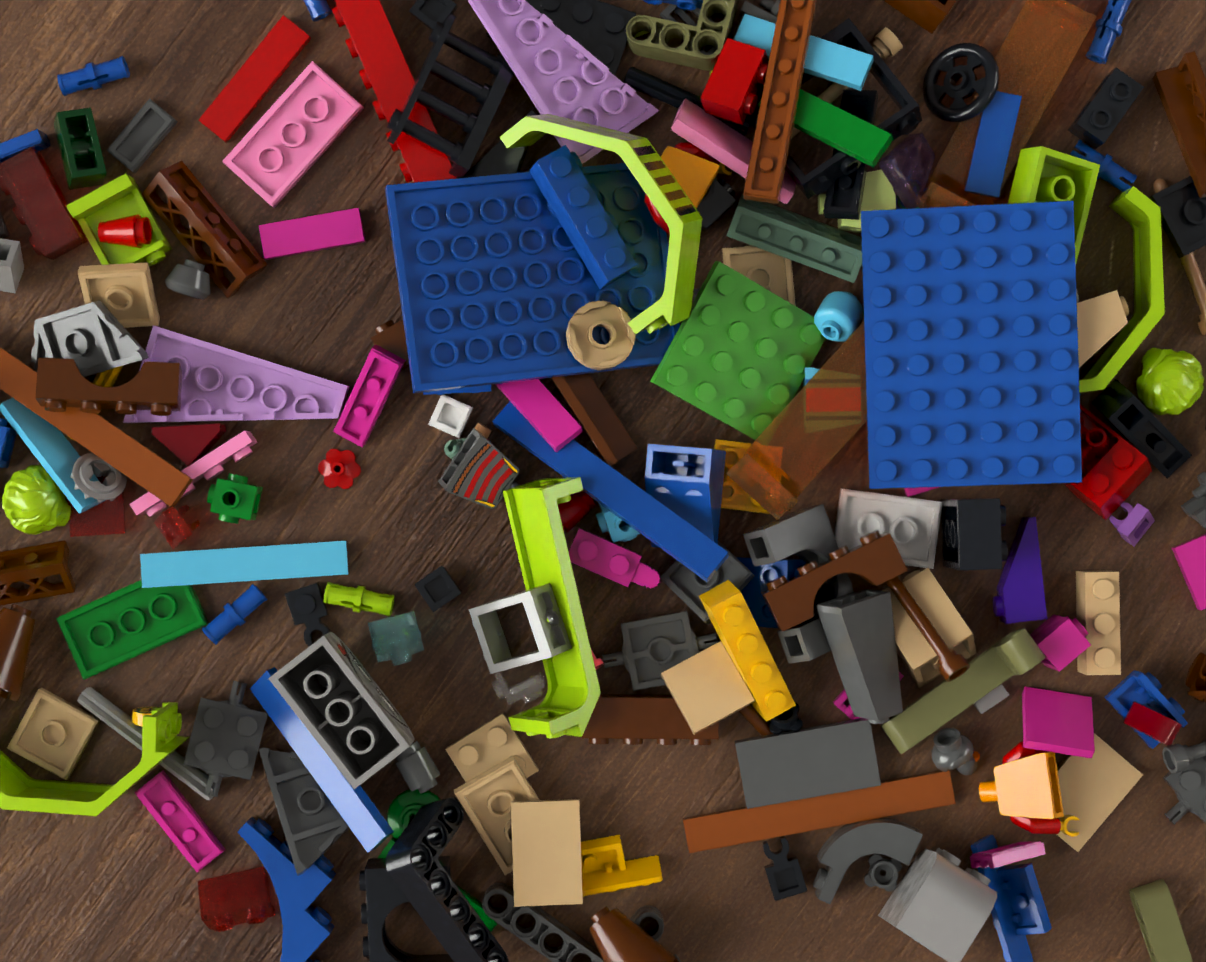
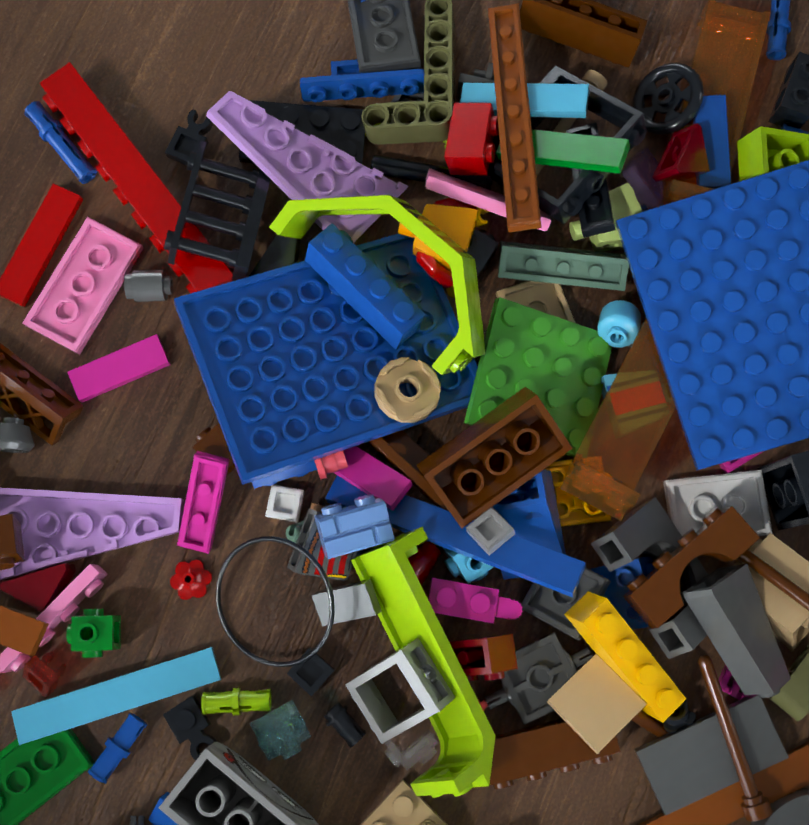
camera: 20 degrees left, 10 degrees down
(361, 153) = (148, 285): none -> dark grey brick
(459, 647) = (344, 724): none -> black pin
(470, 494) = (324, 577): none -> black piece
(488, 531) = (350, 601): none -> tile
(505, 391) = (330, 464): none -> coral piece
(513, 460) = (353, 526): none -> medium blue brick
(611, 616) = (486, 656): none -> dark red brick
(646, 498) = (490, 530): none -> light grey tile
(668, 426) = (494, 456): none -> reddish brown slope
(834, 817) = (754, 804): none -> reddish brown piece
(955, 154) = (684, 156): none -> dark red slope

